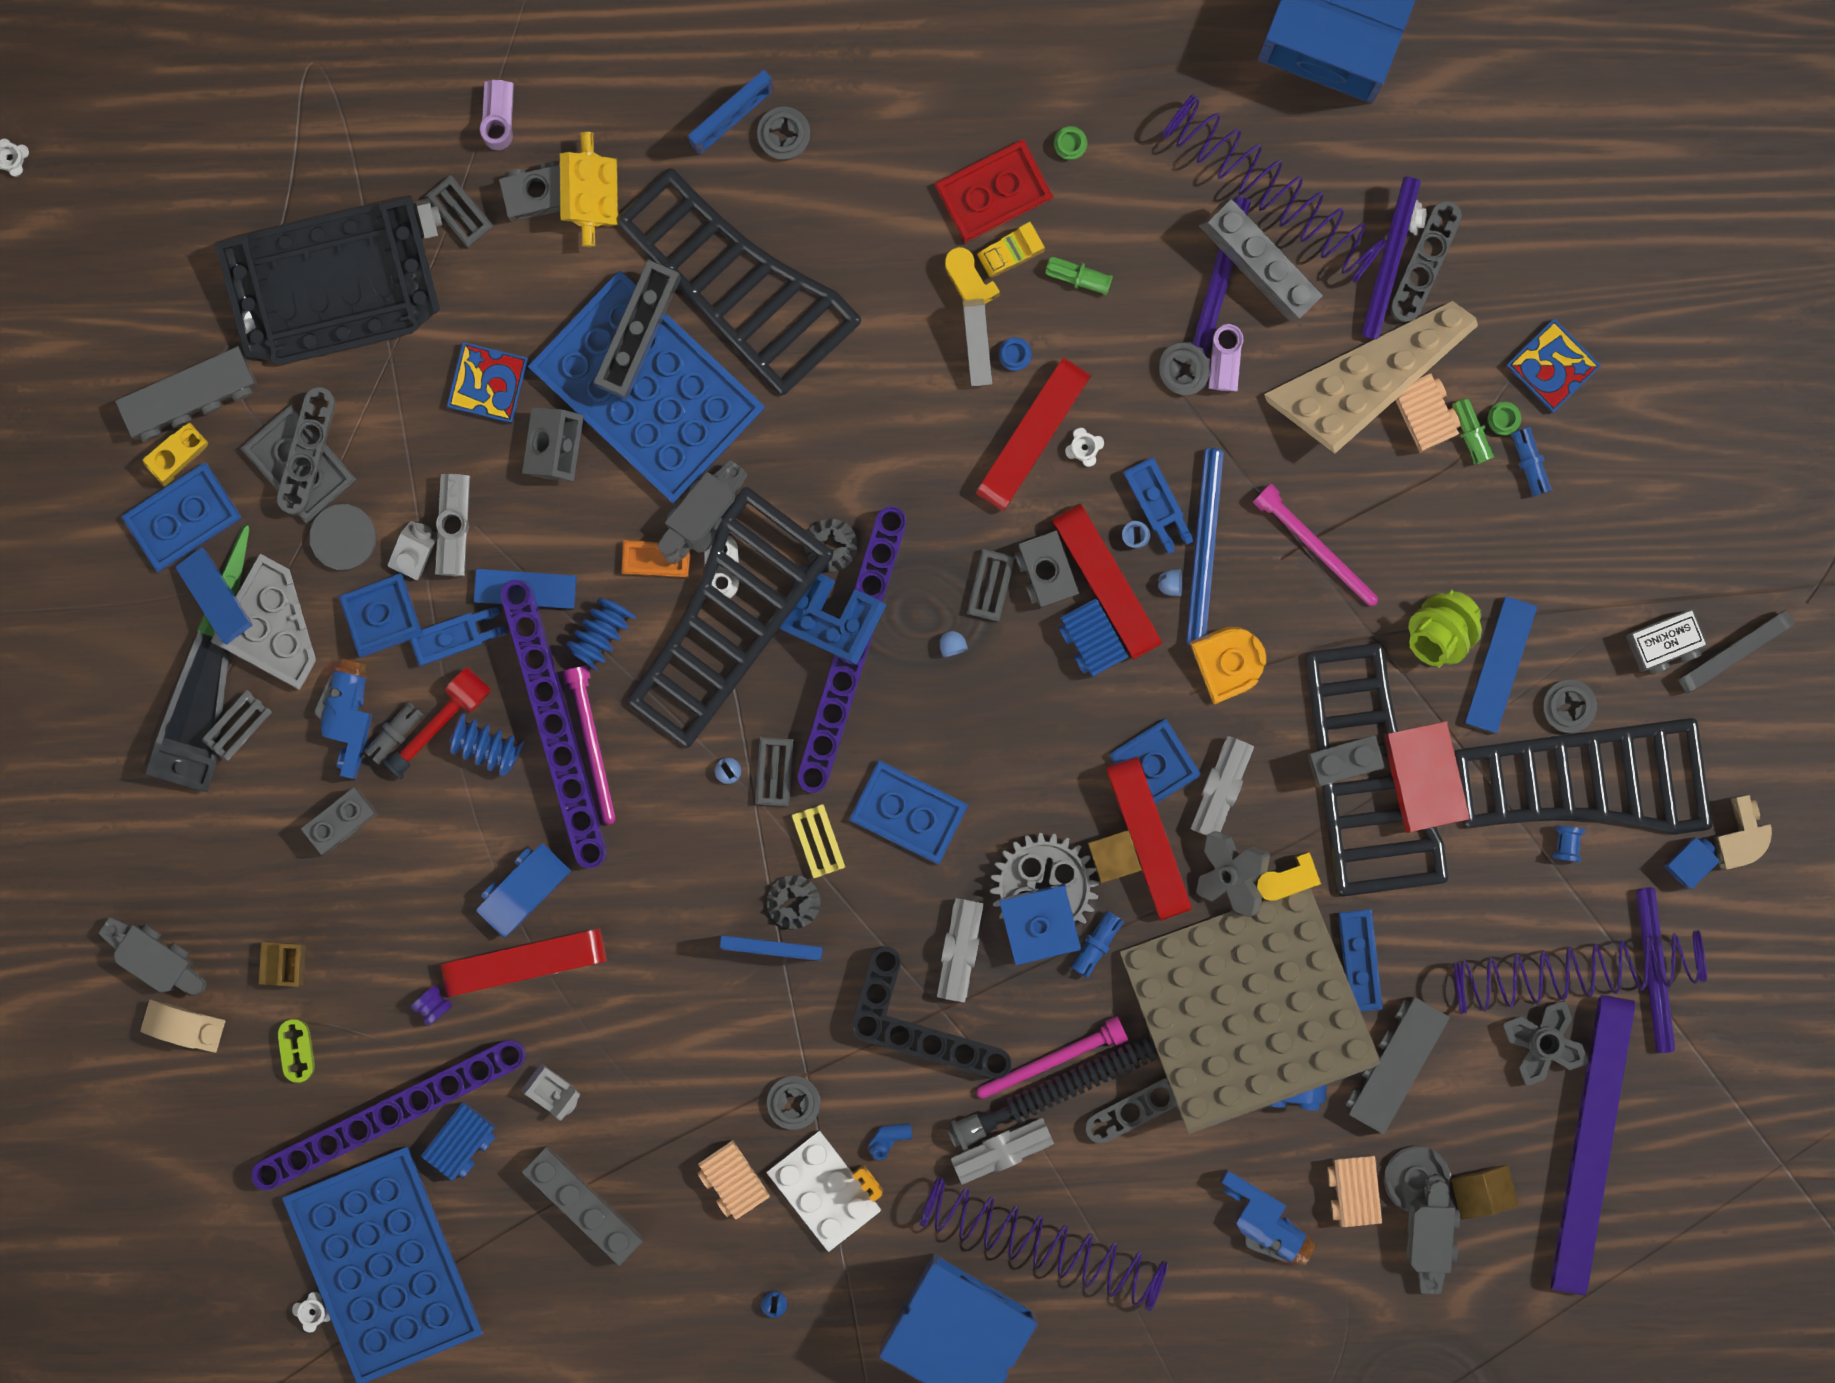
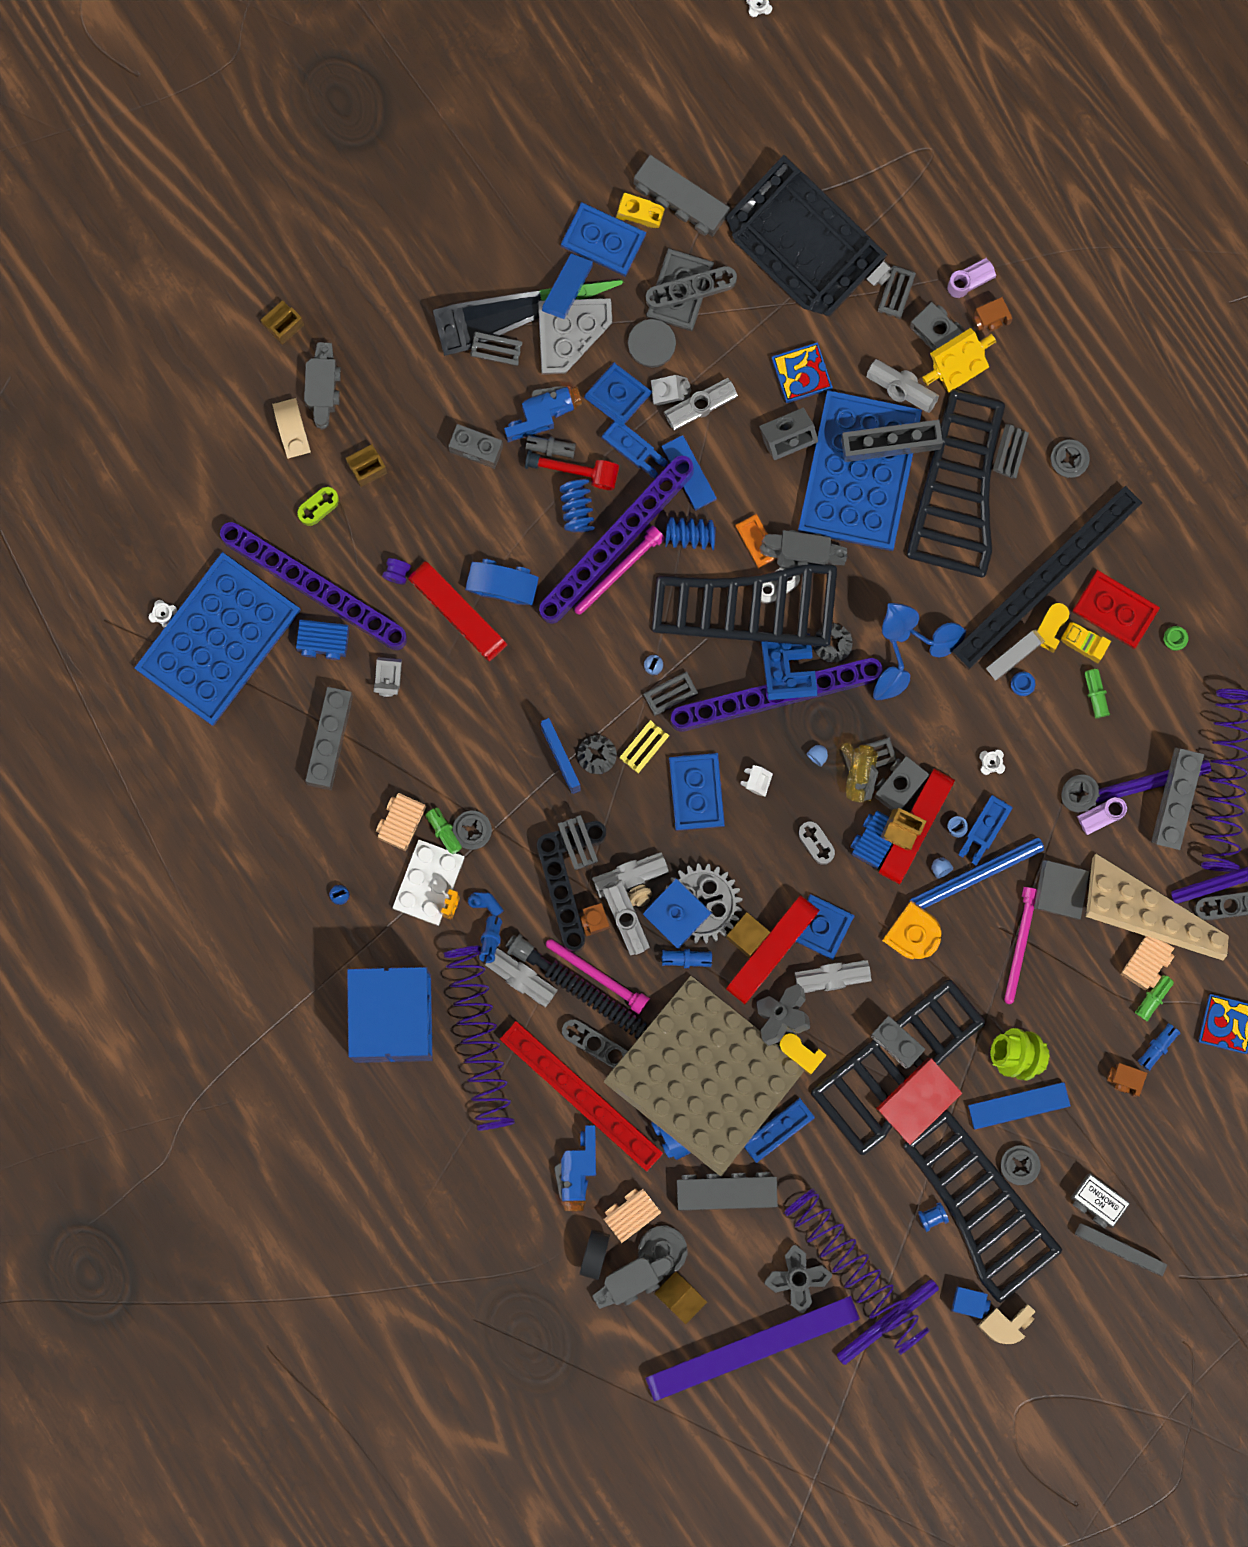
camera: 60 degrees right, 5 degrees down
(47, 959) = (282, 322): none -> pearl gold piece
(558, 117) = (992, 315): none -> dark orange brick
(577, 275) = (902, 386): none -> light grey piece
(731, 112) = (1062, 417): blue tile -> none
(736, 194) = (1014, 452): none -> dark grey tile
(774, 1137) = (443, 830): none -> bright green axle
(862, 459) = (897, 627): none -> blue plant
(887, 990) = (570, 823): none -> dark grey tile
(908, 248) = (1047, 577): none -> black plate
(937, 1160) = (490, 939): none -> blue pin
(940, 733) = (758, 780): none -> white tile
(986, 1025) = (594, 919): none -> dark orange brick
(990, 983) = (619, 904): none -> light grey piece
(991, 954) = (640, 895): none -> tan plate
(1006, 606) = (861, 773): none -> clear yellow piece
(1033, 434) = (980, 725): red beam -> none
(1054, 718) = (821, 839): none -> light grey beam
(1103, 601) = (903, 828): none -> pearl gold piece
(1182, 1165) = (581, 1096): none -> red plate
(1283, 460) = (1061, 889): none -> dark grey tile
(1377, 1262) = (594, 1254): none -> black tyre
(1504, 418) = (1175, 1013): bright green plate -> none
(1547, 522) = (1127, 1079): none -> dark orange brick

